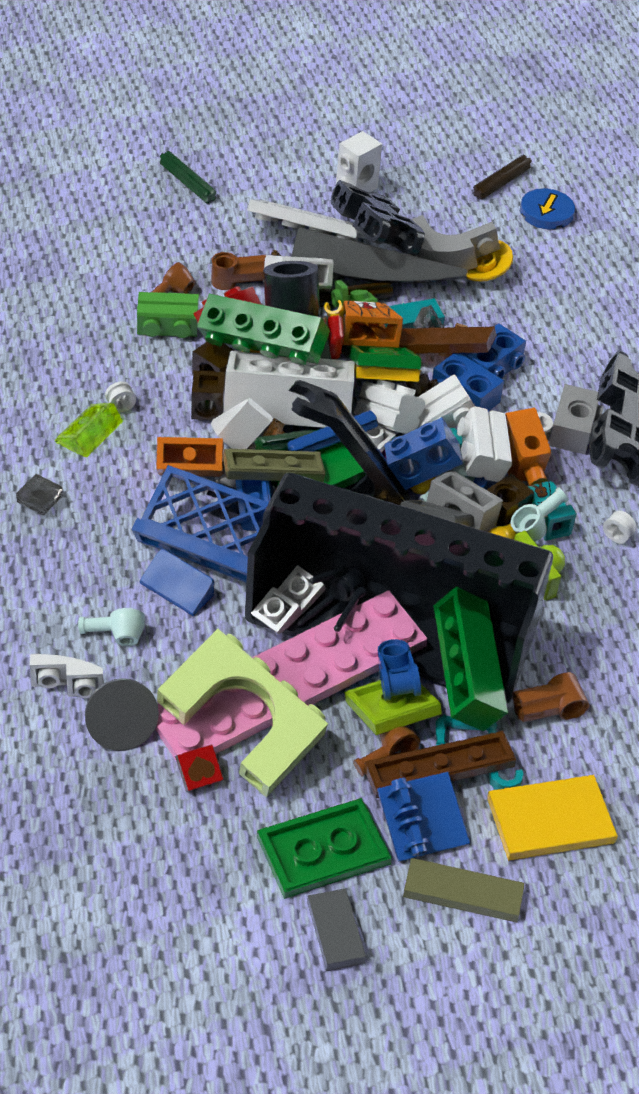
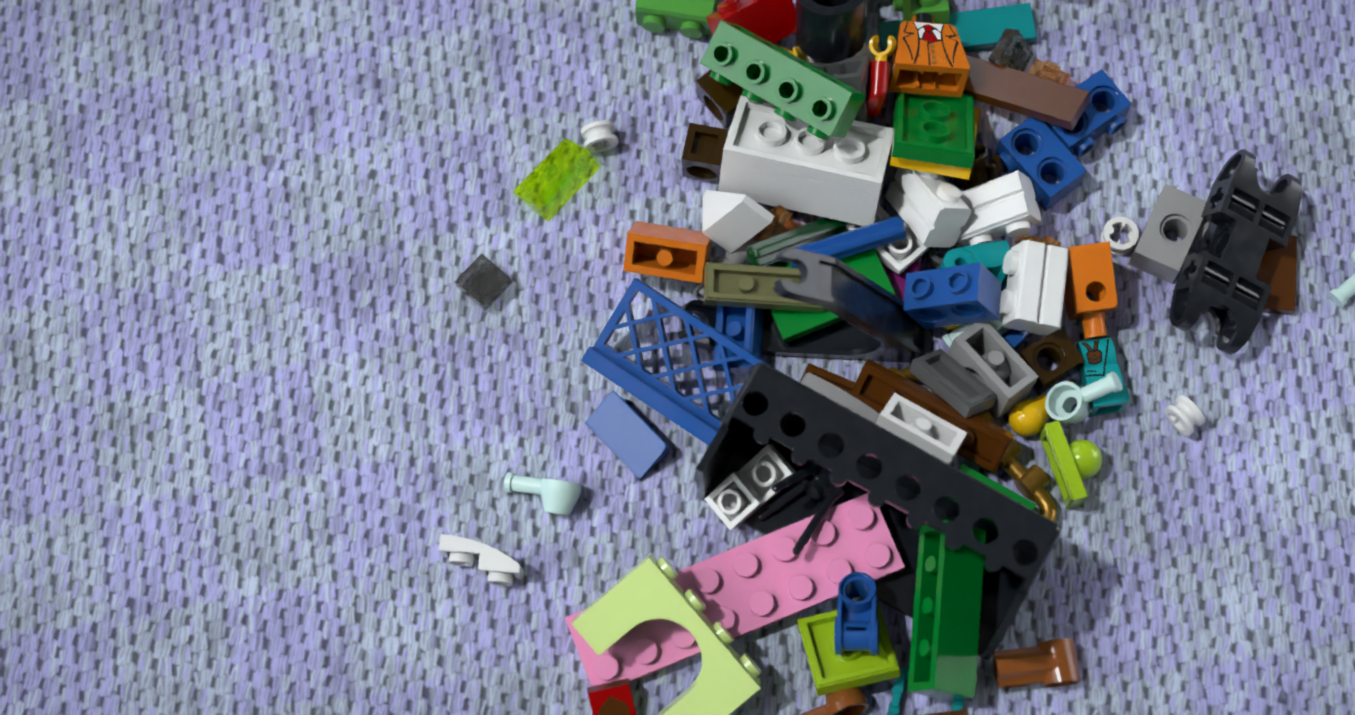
camera: 20 degrees right, 25 degrees up
(121, 714) = (534, 627): dark grey shield -> none

